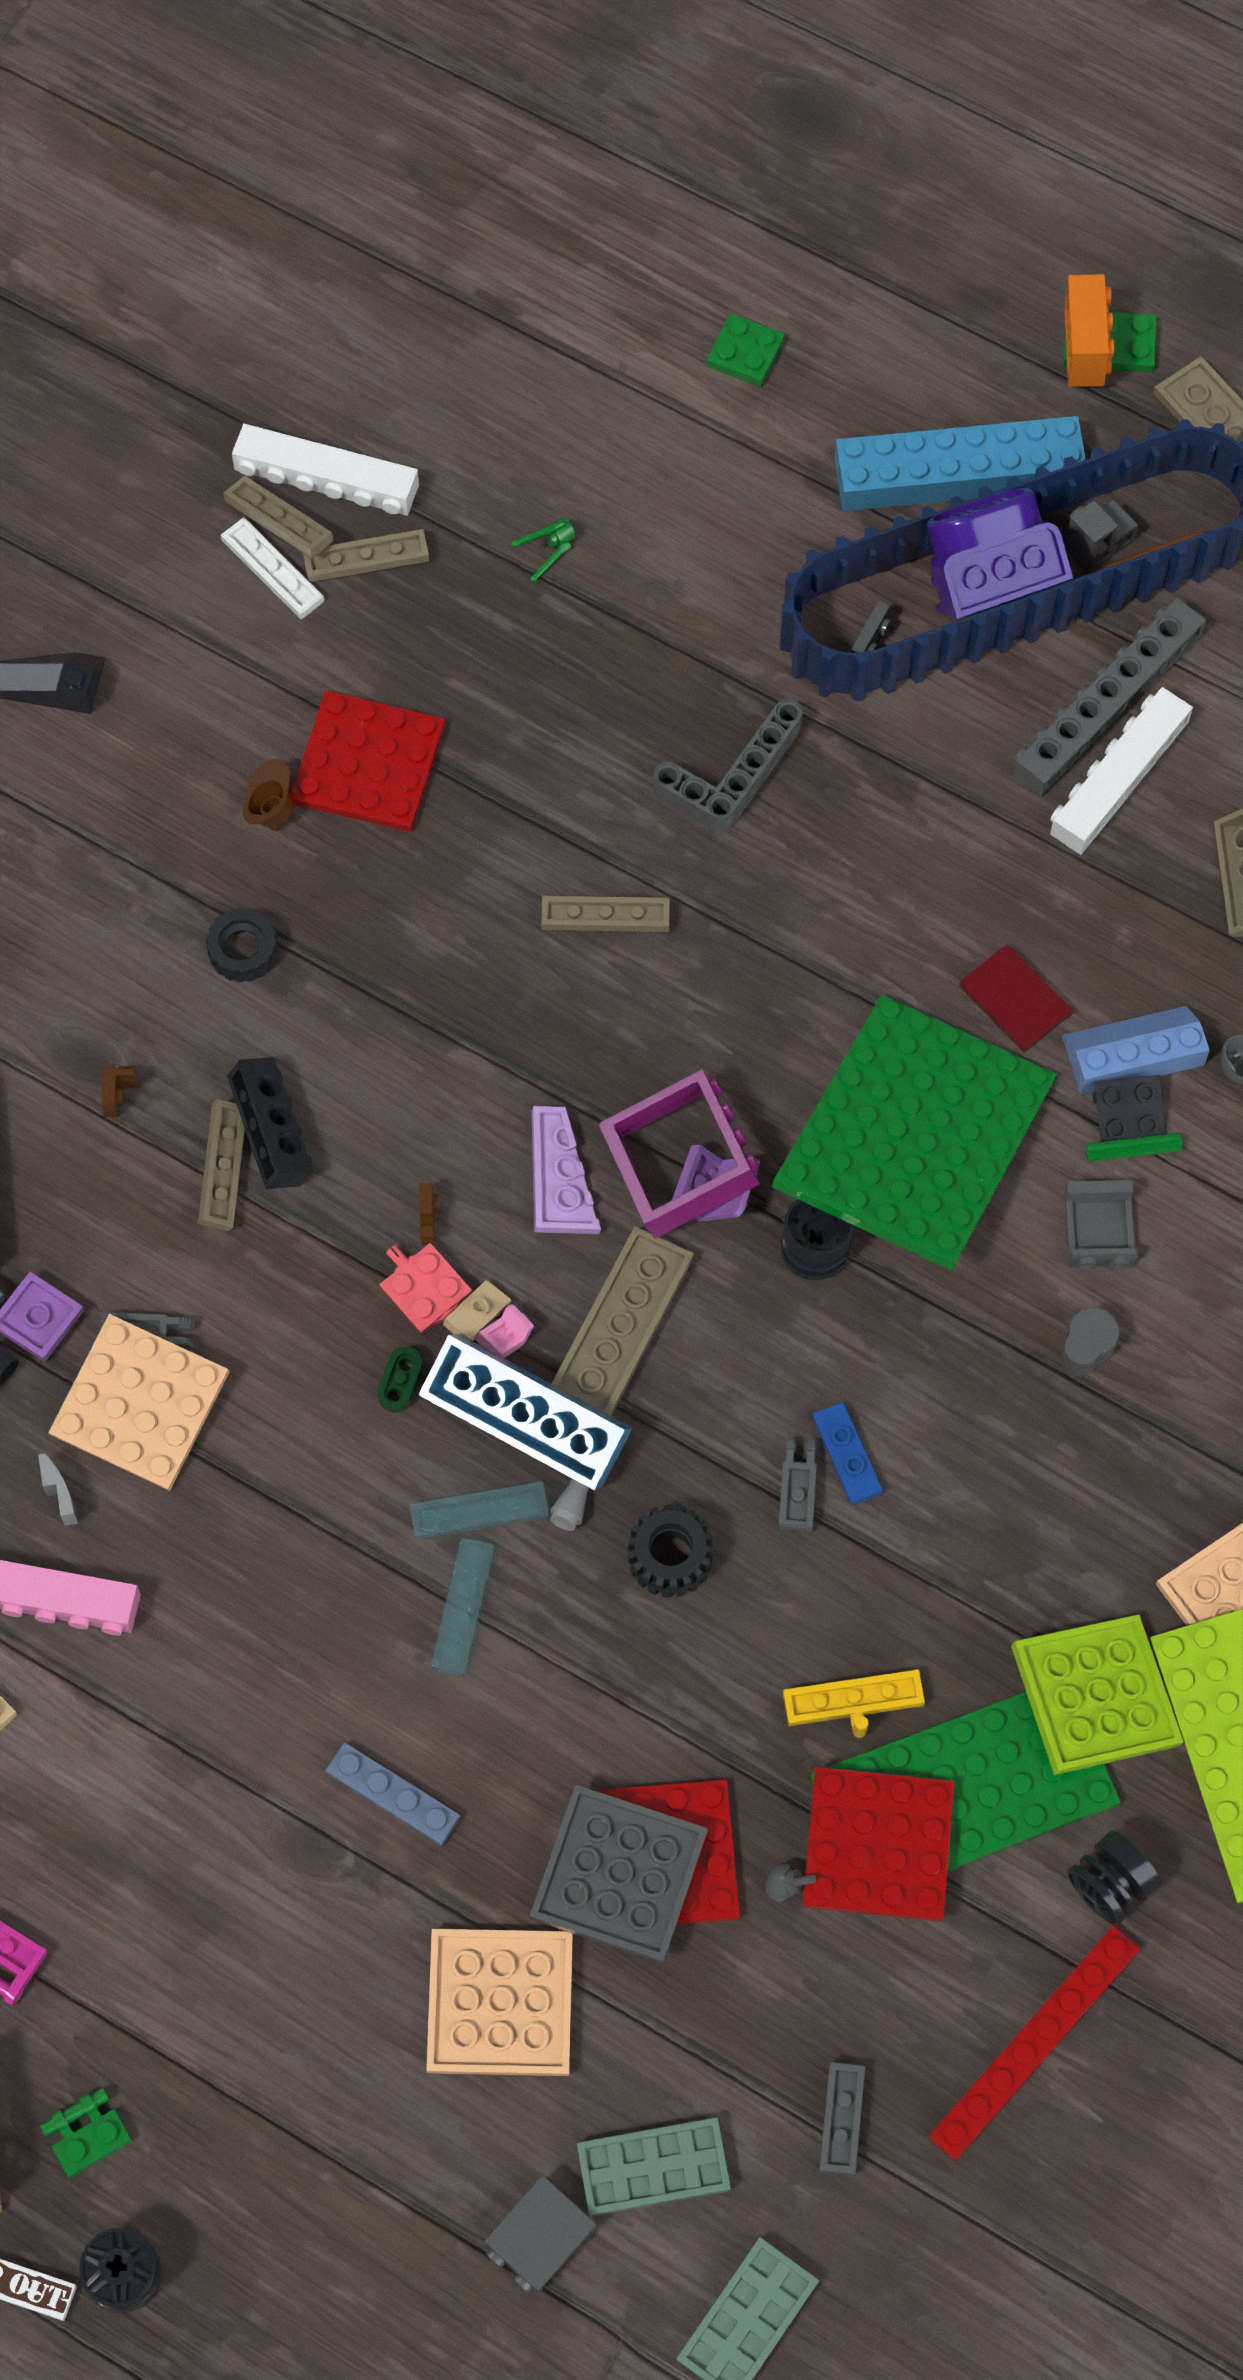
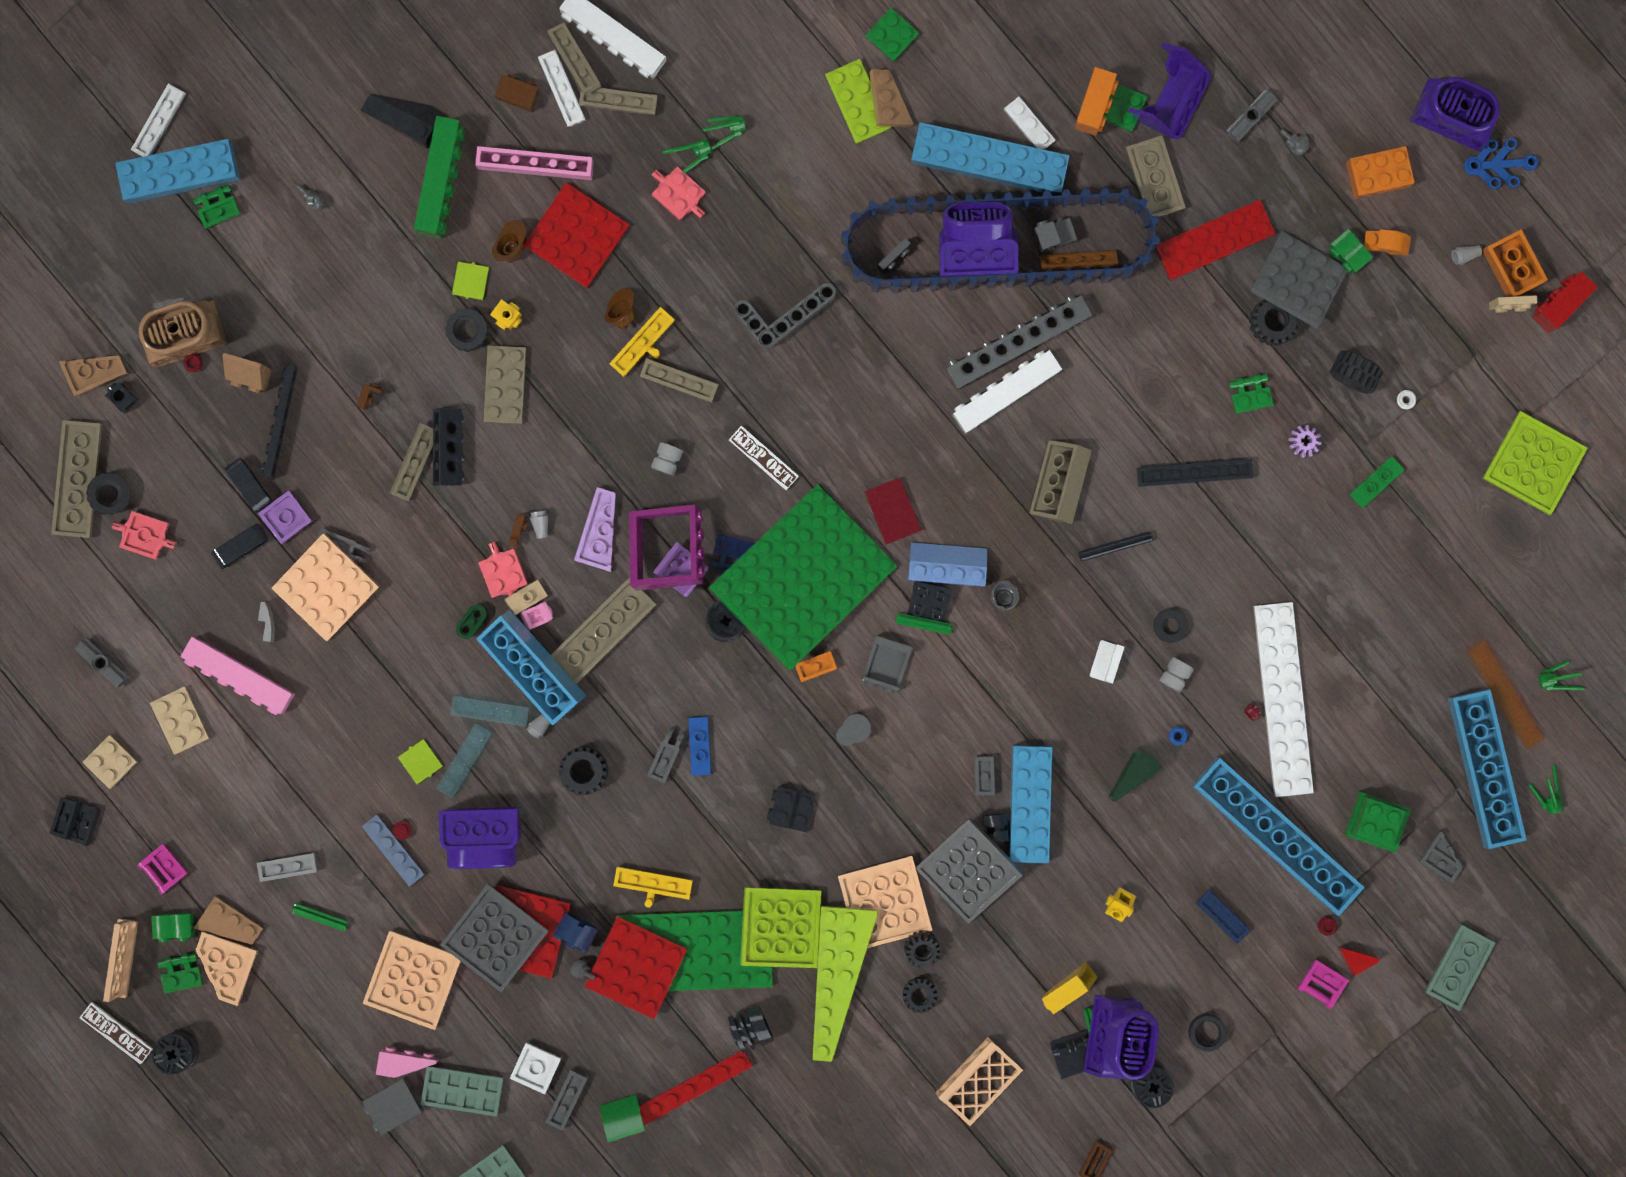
camera: 20 degrees right, 20 degrees up
(48, 2051) = (173, 926): none -> green brick
(127, 737) = (439, 177): none -> green brick
(143, 2013) = (228, 922): none -> medium nougat wing
(164, 2089) = (226, 965): none -> light nougat plate
(206, 590) = (517, 93): none -> reddish brown piece
(218, 1882) = (287, 867): none -> light grey plate
(222, 876) = (470, 280): none -> lime piece
(268, 674) = (534, 163): none -> bright pink brick
(298, 901) = (502, 310): none -> yellow brick
(303, 1949) = (320, 917): none -> green axle
(330, 1008) = (505, 384): none -> dark tan plate
(389, 1634) = (420, 761): none -> lime piece
(396, 1754) = (402, 830): none -> dark red plate
(458, 1190) = (540, 523): none -> light grey cone
(477, 838) = (620, 309): none -> reddish brown piece
(505, 654) = (678, 193): none -> coral plate
(514, 580) = (699, 148): none -> green plant
(525, 2156) = (395, 1063): none -> bright pink slope
(528, 877) = (642, 342): none -> yellow plate
(538, 1705) = (480, 837): none -> dark purple brick
(629, 1030) = (666, 460): none -> light grey wheel
(729, 451) = (855, 99): none -> lime plate
(754, 1816) = (575, 932): none -> dark blue brick
(767, 2082) = (535, 1068): none -> white plate
(775, 435) = (887, 100): none -> medium nougat wing
(776, 1133) = (731, 548): none -> clear blue plate
(781, 985) = (763, 458): none -> tile
(951, 2112) = (622, 1118): none -> green slope
(988, 1266) = (816, 666): none -> orange plate
(994, 401) = (1029, 124): none -> white plate
(1036, 1502) = (791, 809): none -> black plate
(1203, 292) = (1180, 95): none -> dark purple windscreen

